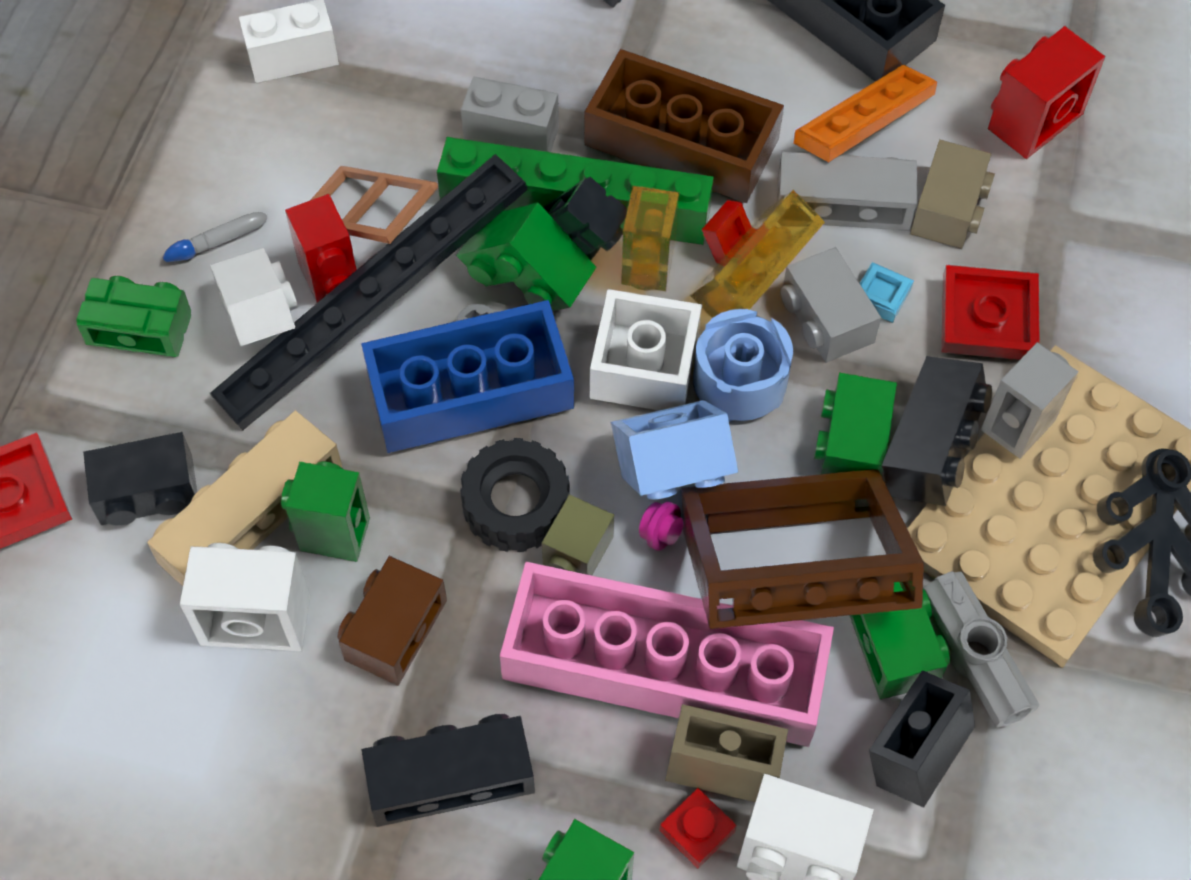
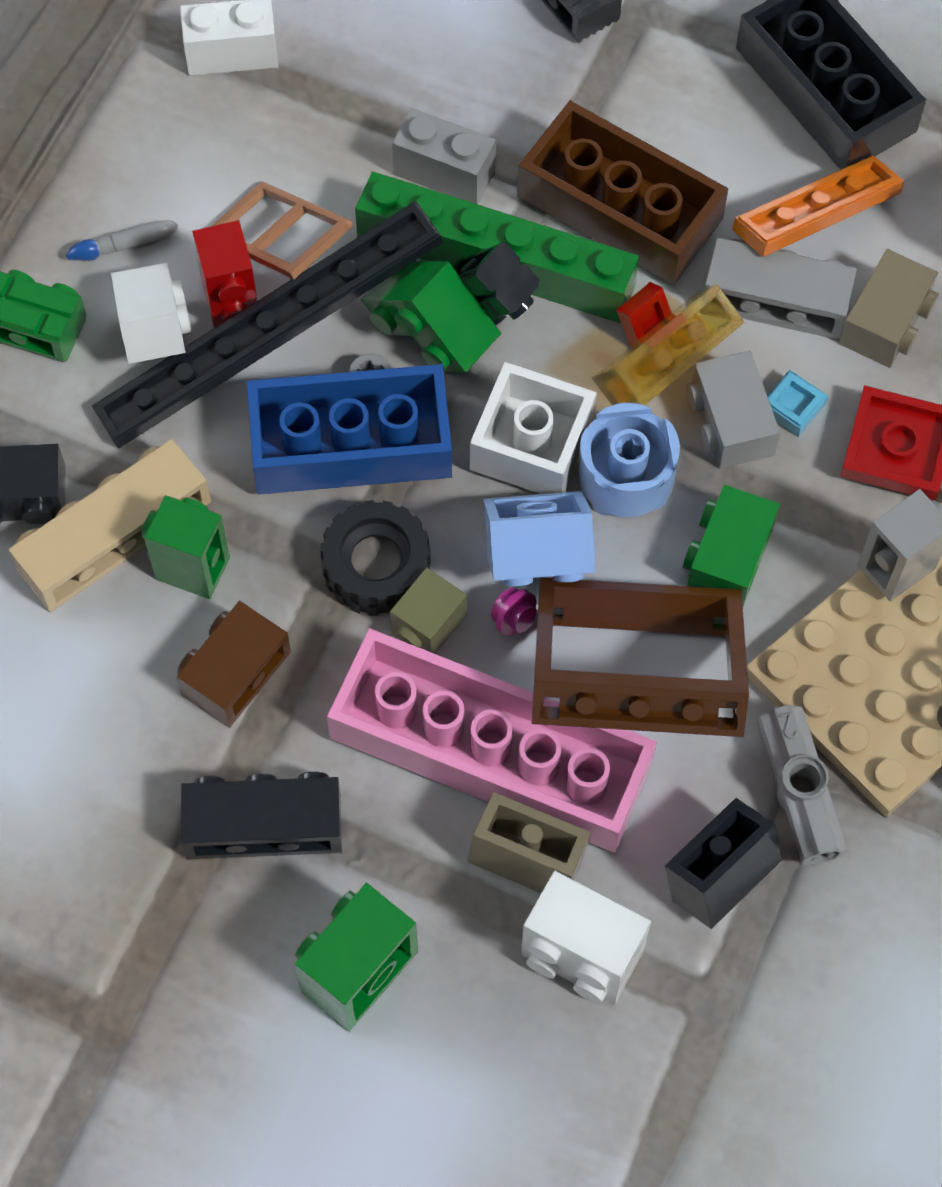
camera: 10 degrees right, 5 degrees up
(245, 597) = (95, 619): white brick -> none
(649, 238) = (559, 312): clear yellow brick -> none
(697, 828) = (490, 911): red plate -> none
(900, 647) = (727, 768): green brick -> none
(937, 431) = (809, 559): black brick -> none

